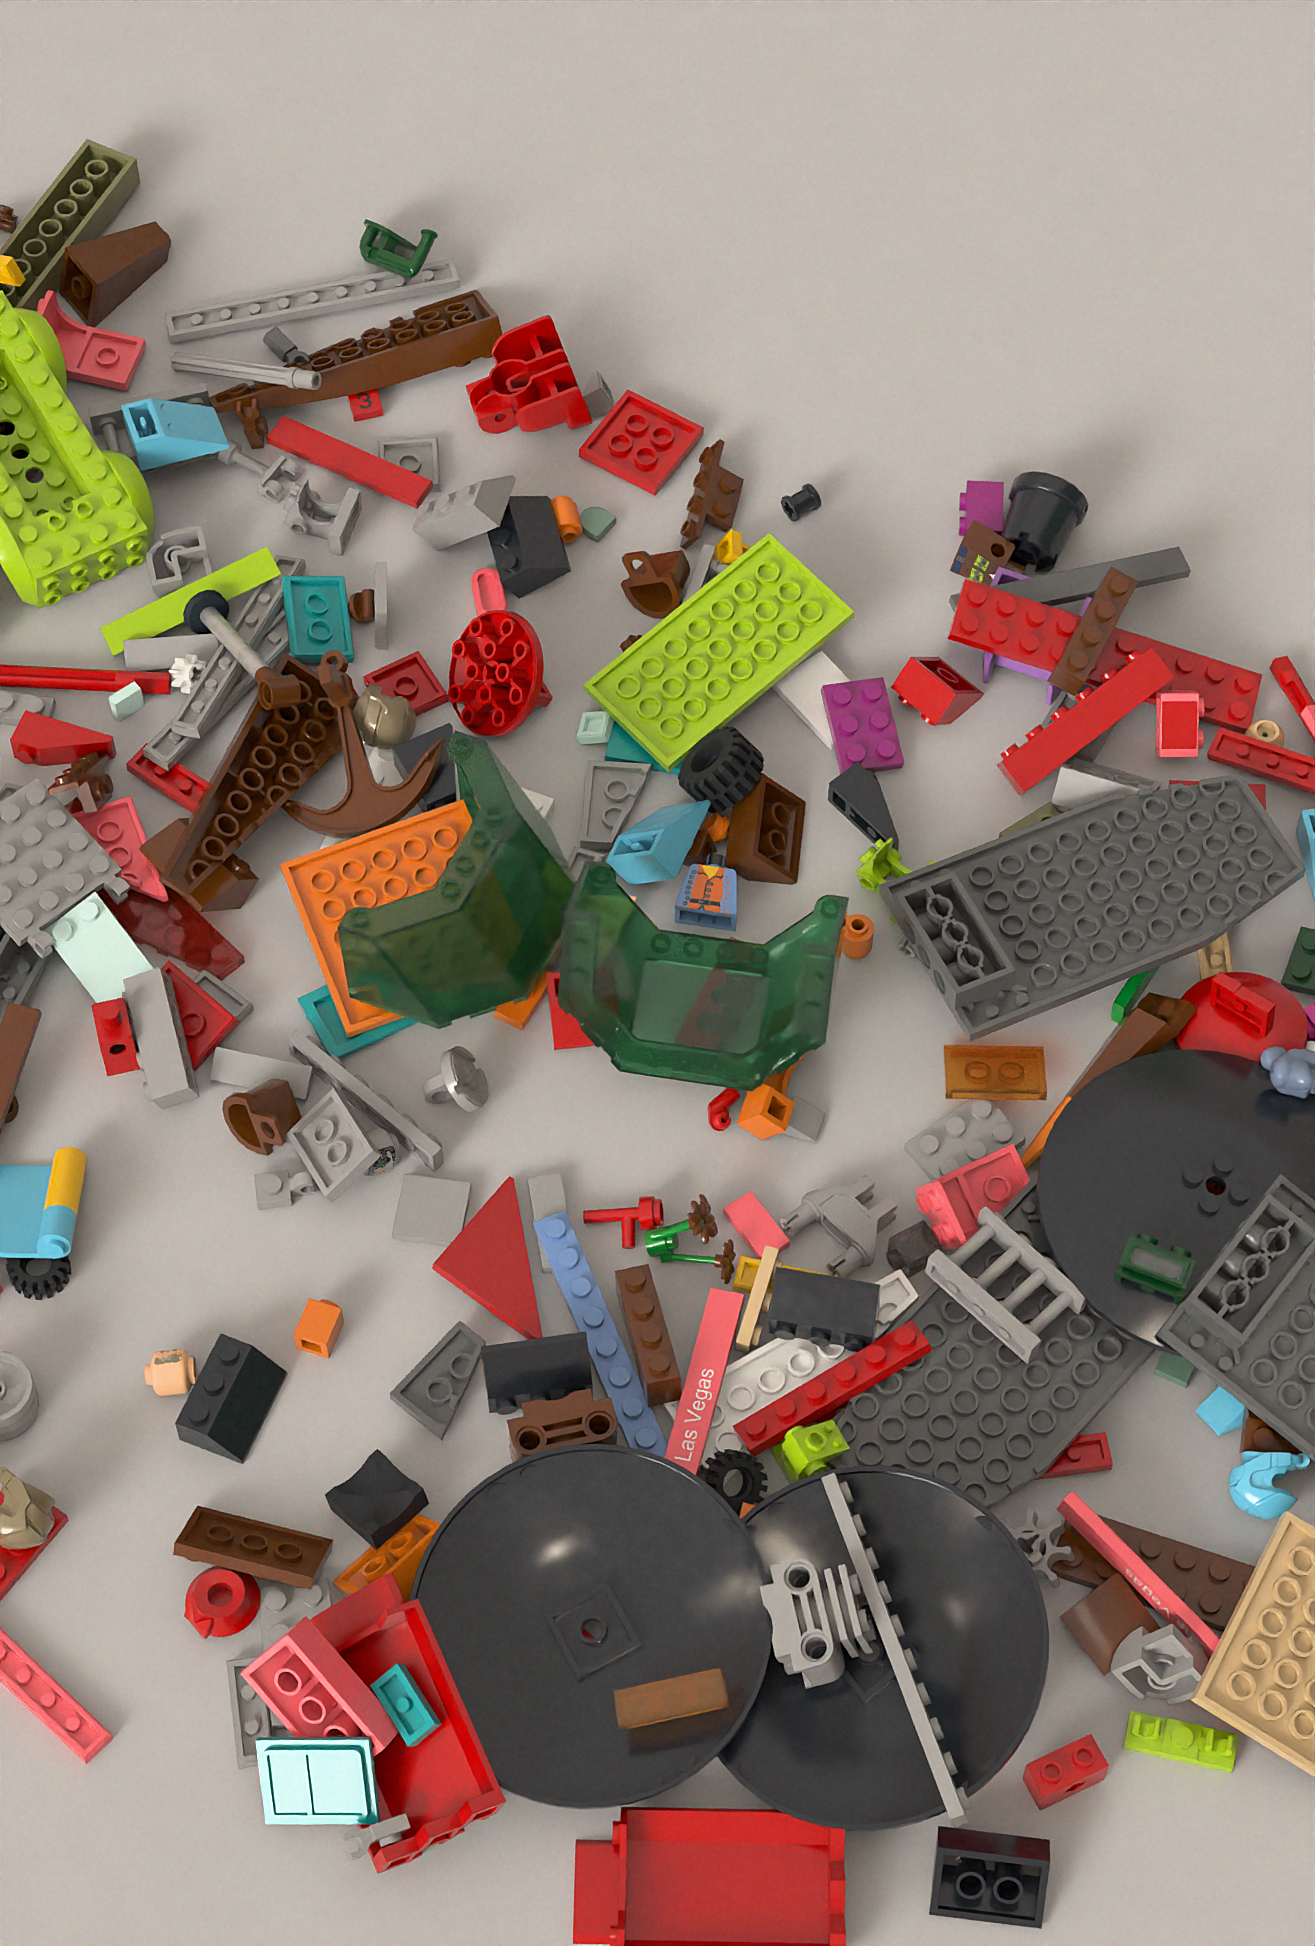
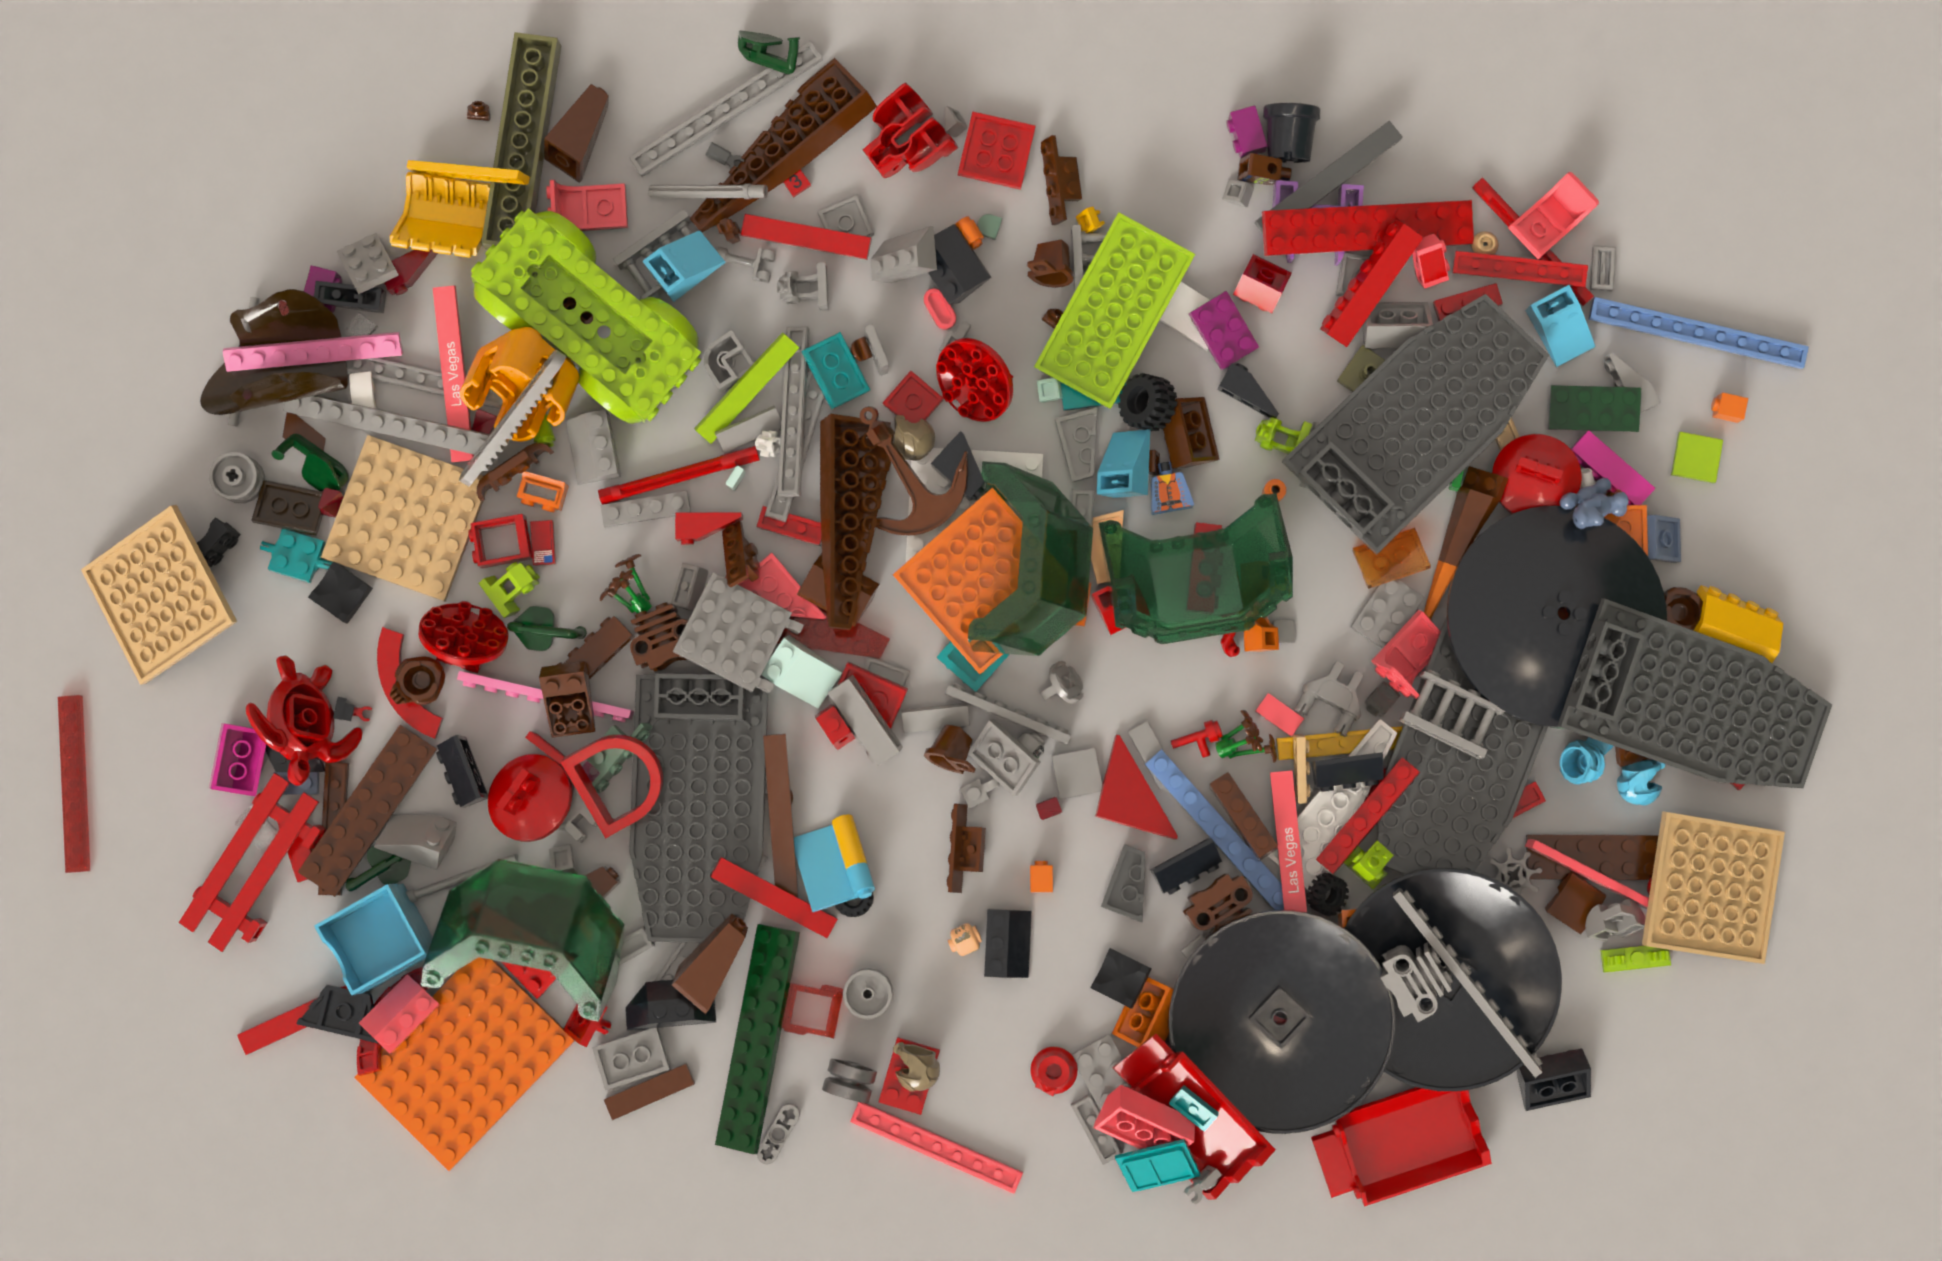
camera: 15 degrees left, 25 degrees up
(208, 614) = (840, 451): piece -> none
(225, 1254) = (966, 848): none -> reddish brown bracket
(253, 1547) = (1060, 1034): reddish brown plate -> none
(370, 1239) = (1048, 808): none -> dark red slope
(671, 1698) = (1346, 1052): clear orange tile -> none
(717, 826) = (1157, 440): orange plate -> none
(801, 502) = (1122, 163): black bush -> none
(944, 581) = (1238, 192): none -> light grey slope
(1065, 1772) = (1578, 1003): red brick -> none
(1092, 631) = (1360, 221): reddish brown brick -> none
(1156, 1266) = (1546, 686): dark green window -> none
(1183, 1422) = (1582, 762): none -> medium azure helmet

